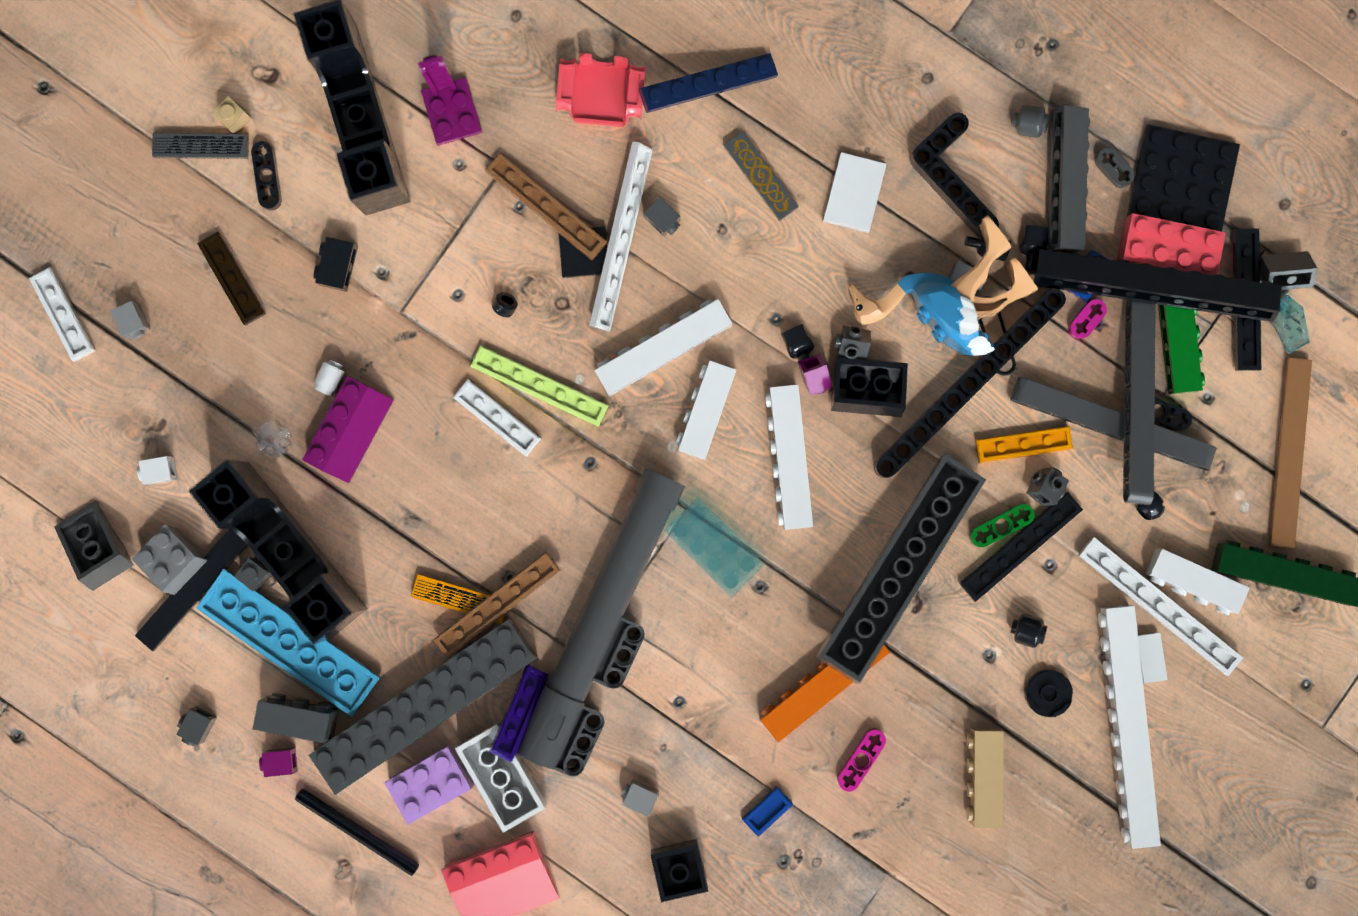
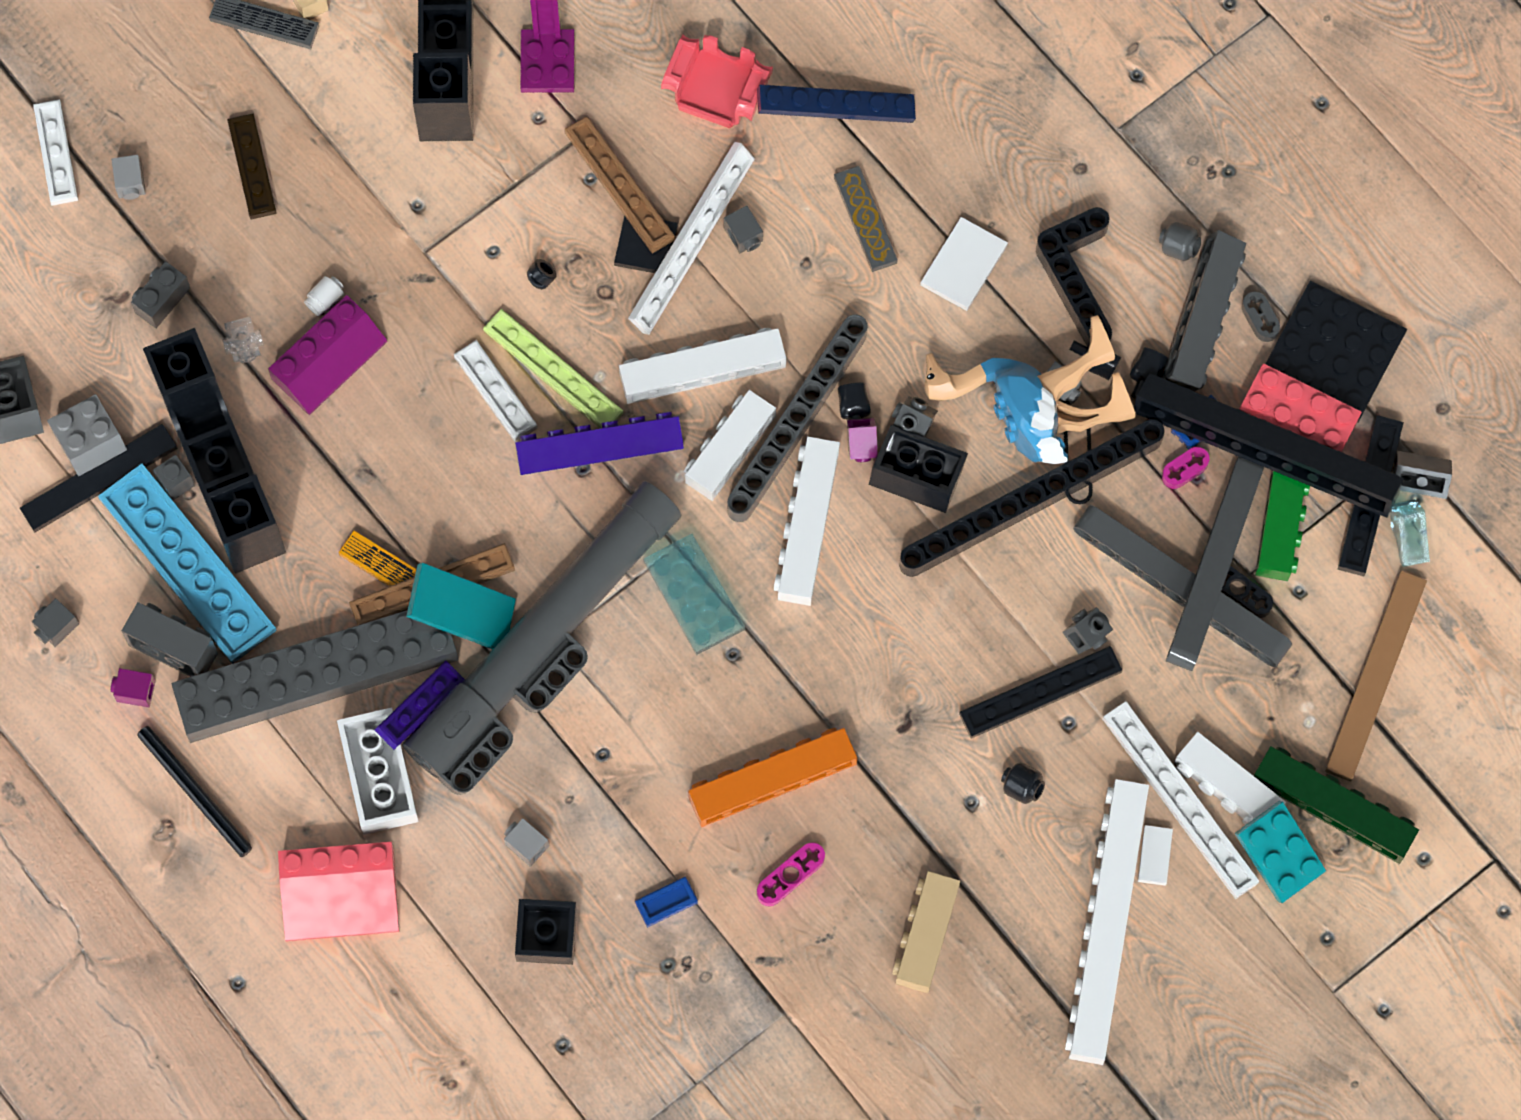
camera: 15 degrees right, 15 degrees down
(157, 470) = (104, 340): white brick -> none
(190, 417) = (160, 294): none -> dark grey brick
(269, 158) = (330, 81): black beam -> none
(335, 264) = (371, 180): black brick -> none
(429, 784) = (293, 758): lavender brick -> none
(526, 621) = (460, 606): none -> teal tile
(597, 443) = (600, 444): none -> dark purple brick
(762, 360) = (792, 429): none -> dark grey beam
(900, 568) = (894, 666): dark grey brick -> none
(989, 538) = (1003, 659): green beam -> none
(1024, 444) = (1076, 582): light orange tile -> none
(1048, 693) = (1026, 862): black tile -> none
(1153, 510) = (1199, 684): black piece -> none
(1254, 629) = (1280, 852): none -> teal plate

